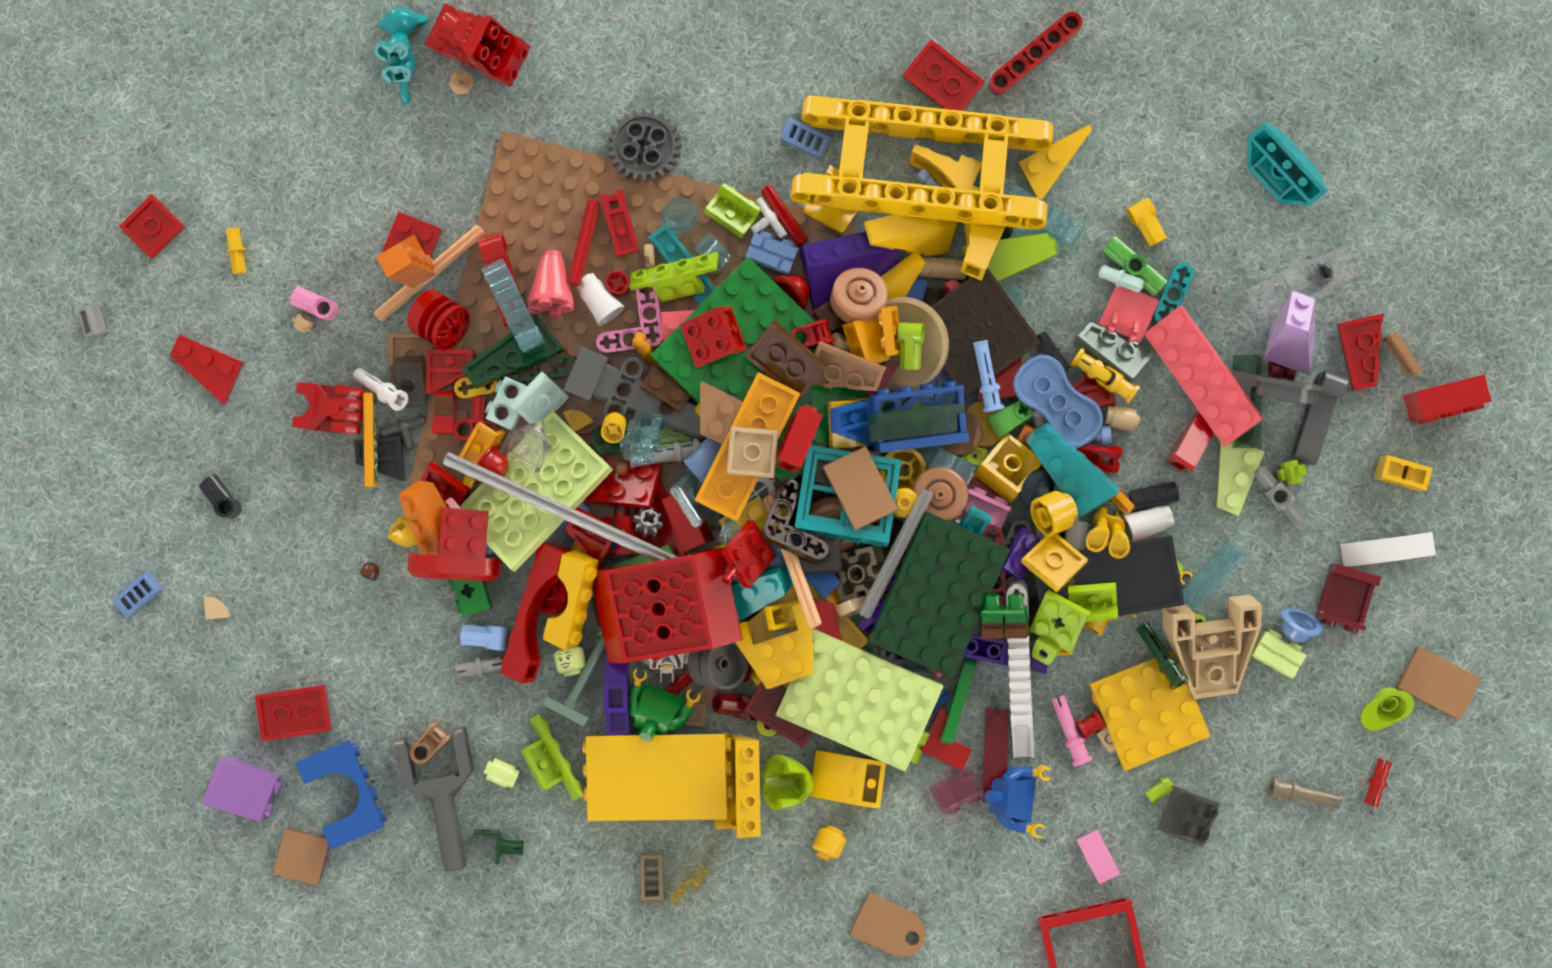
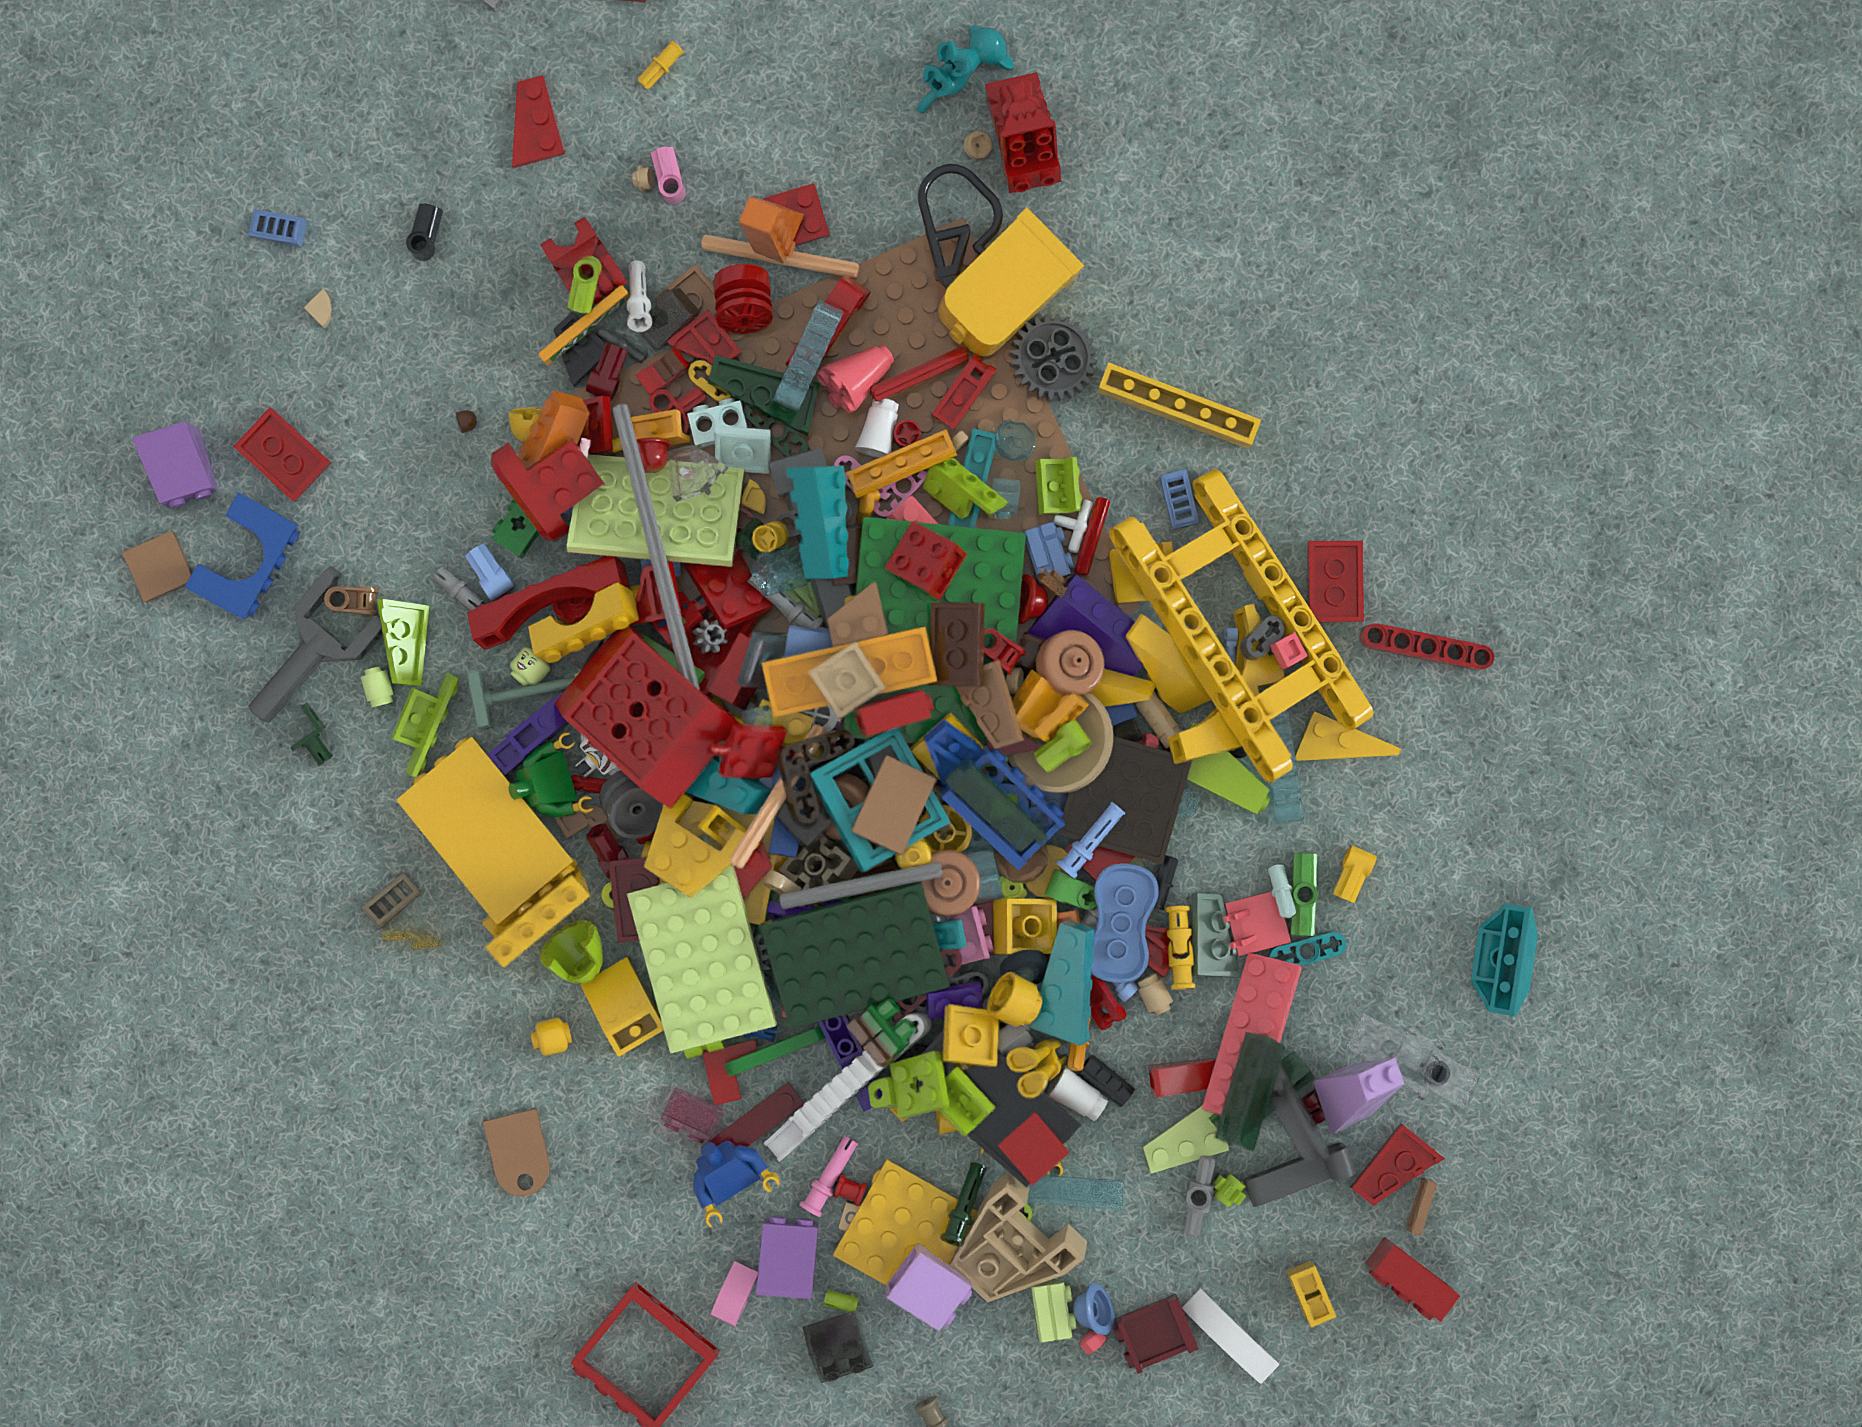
camera: 45 degrees right, 0 degrees up
(345, 418) = (584, 286): none -> lime piece
(417, 454) = (605, 378): none -> dark red piece
(484, 728) = (405, 639): none -> lime wing
(567, 133) = (1005, 281): none -> yellow piece
(631, 384) = (821, 520): none -> teal wedge
(634, 302) = (901, 463): none -> light orange tile
(743, 88) = (1179, 406): none -> yellow brick
(794, 263) = (1053, 581): none -> clear orange plate
(938, 156) = (1258, 633): none -> dark grey beam
(965, 145) = (1288, 650): none -> coral tile
(1103, 802) = (787, 1258): none -> medium lavender slope
(1162, 579) = (1034, 1148): none -> red piece
(1198, 724) = (928, 1288): none -> lavender slope
(1238, 404) = (1249, 1091): none -> clear green panel
(1319, 644) = (1092, 1341): none -> coral tile

